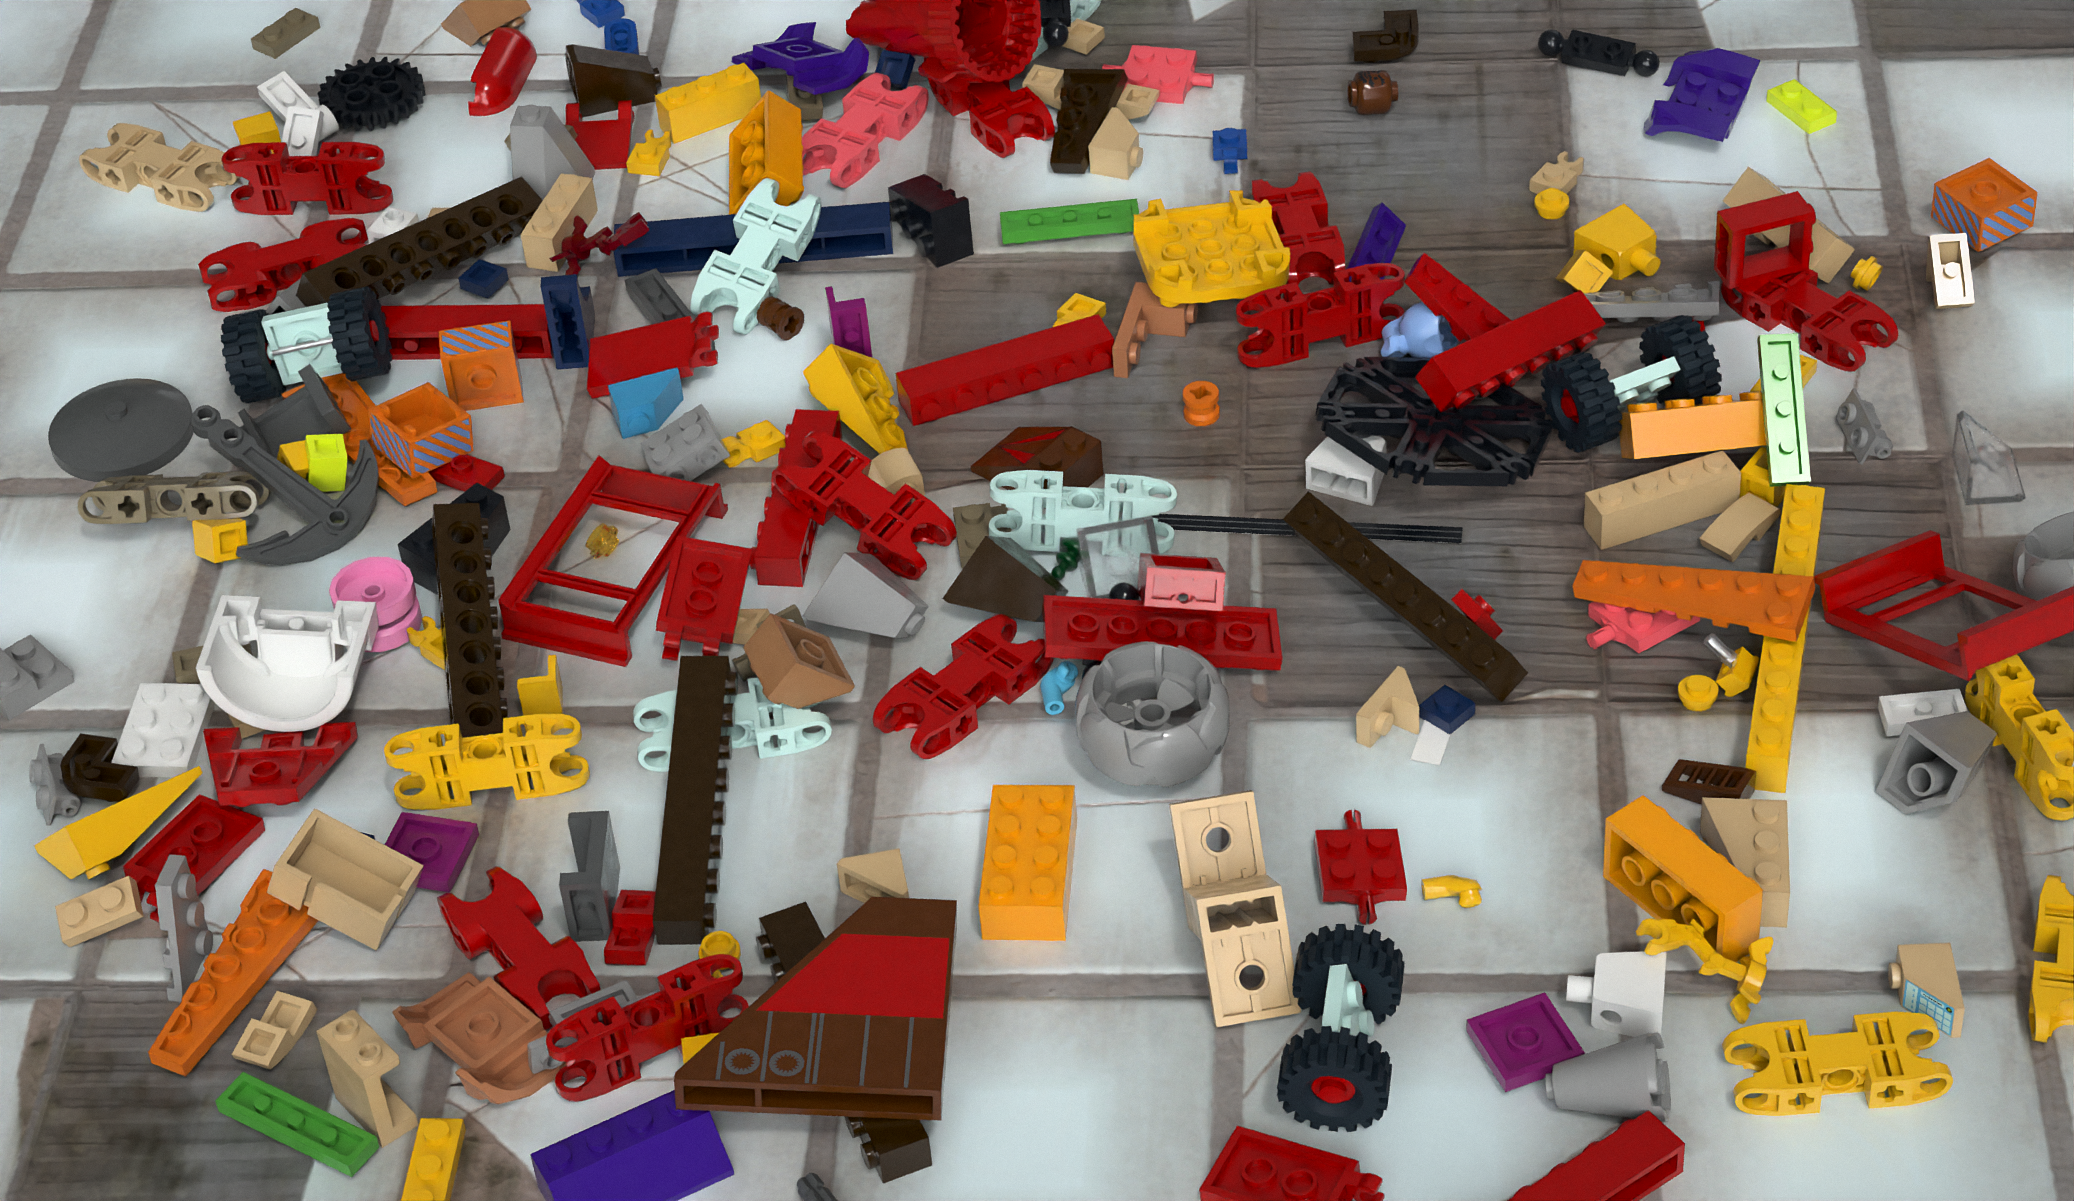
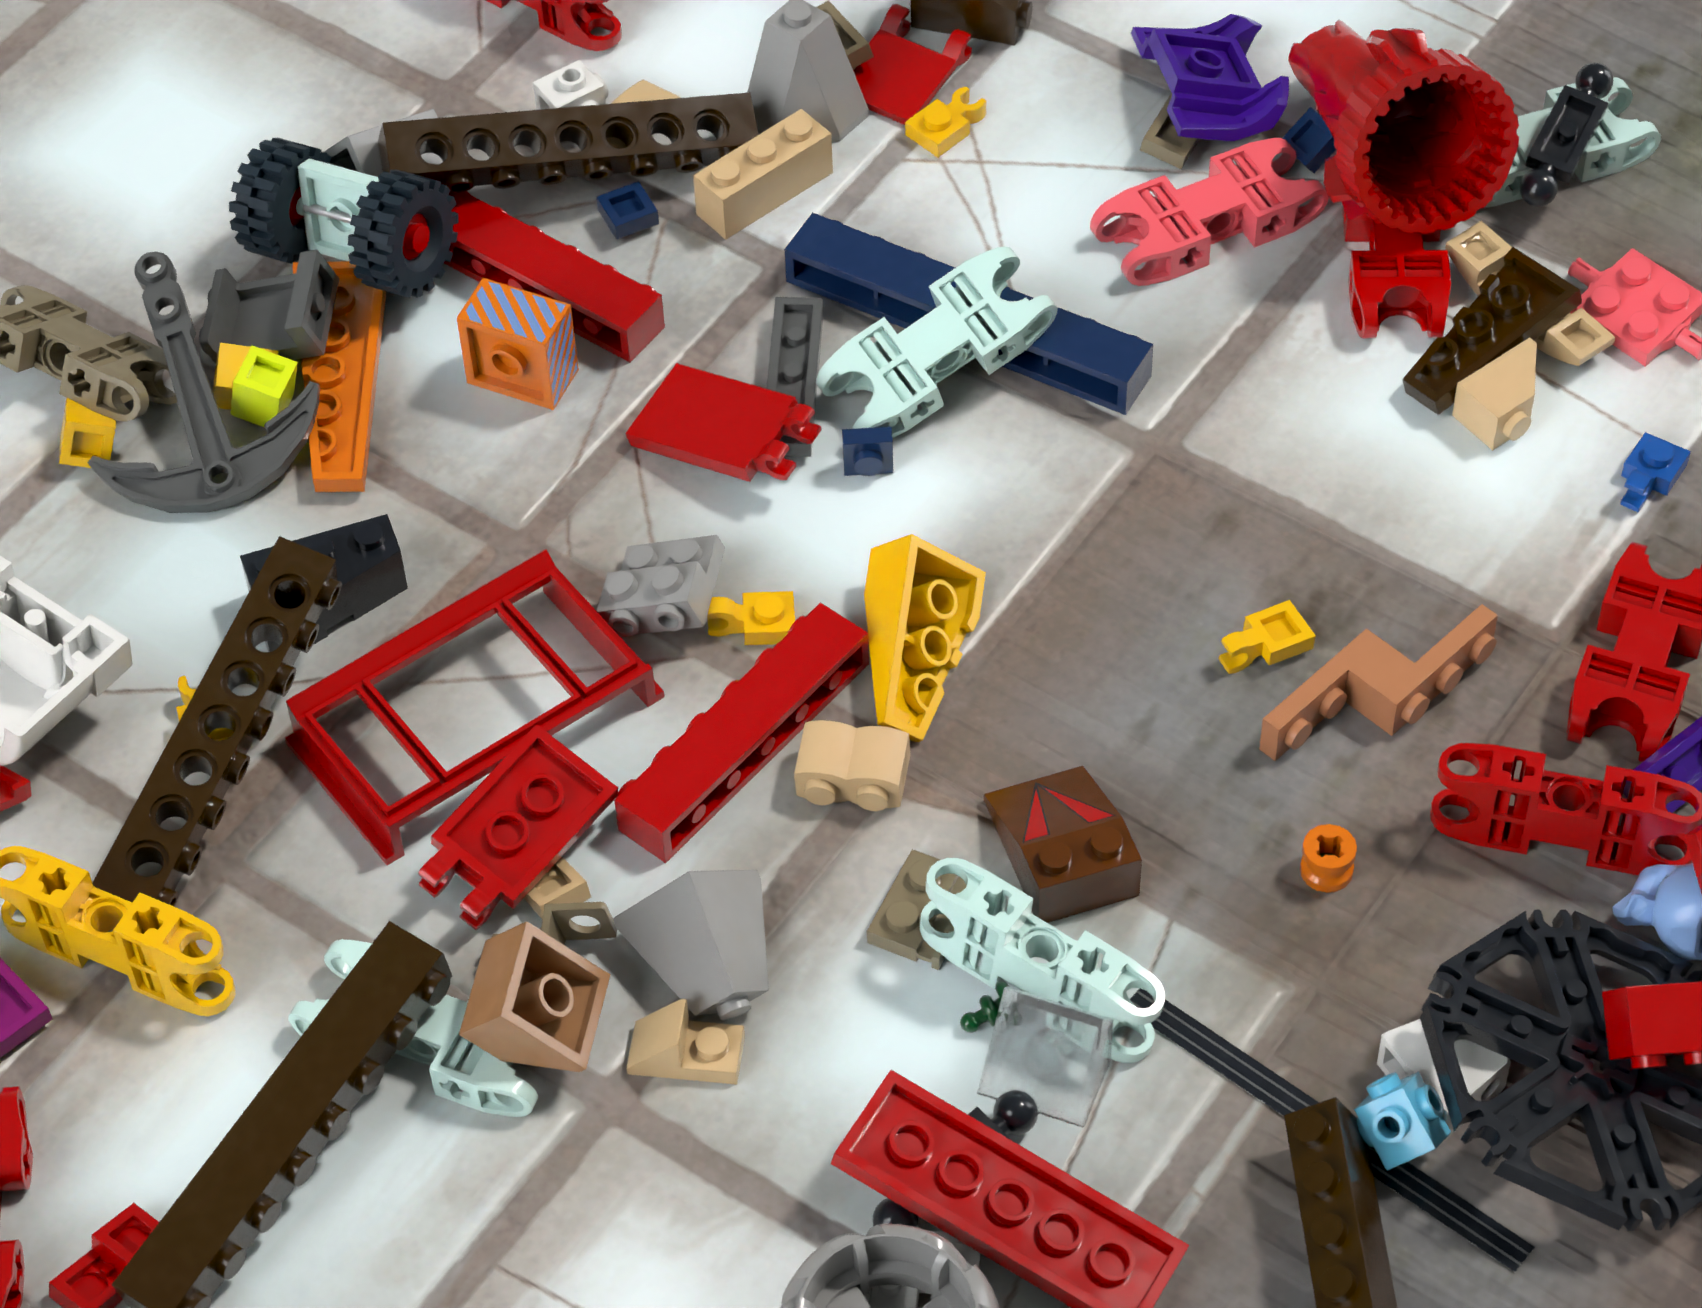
camera: 30 degrees right, 10 degrees up
(121, 429) = (102, 211): dark grey dish -> none
(261, 272) = (407, 75): red piece -> none
(393, 590) = (171, 621): bright pink wheel -> none
(420, 430) = (384, 402): orange container -> none
(466, 471) = (411, 478): red plate -> none
(542, 693) = (260, 853): yellow panel -> none
(569, 319) = (662, 325): dark blue arch -> none
(577, 246) = (762, 222): dark red piece -> none
(593, 890) = (103, 1179): dark grey panel -> none
(602, 540) = (482, 669): clear yellow plate -> none
(645, 401) = (672, 490): dark azure slope -> none
(707, 102) = (1056, 83): yellow brick -> none
(753, 331) = (867, 451): none -> dark blue plate
(764, 147) = (1056, 202): light orange brick -> none
(780, 317) = (915, 447): reddish brown bush -> none
(845, 490) = (806, 832): red piece -> none
(849, 323) = (966, 514): magenta panel -> none
(891, 661) = (677, 1048): none -> tan slope
(932, 219) = (1191, 393): black wedge -> none
(946, 703) = (723, 1135): red piece -> none
(1004, 581) = (884, 1010): dark brown slope -> none
(1005, 370) = (1121, 672): red brick -> none
(1055, 684) = (837, 1199): medium azure arm -> none
(1068, 221) = (1366, 482): bright green plate -> none
(1084, 36) = (1583, 201): tan plate -> none
(1168, 576) = (1090, 1177): window -> none
(1210, 250) = (1487, 636): yellow plate -> none
(1362, 495) = (1401, 1118): none -> medium azure brick

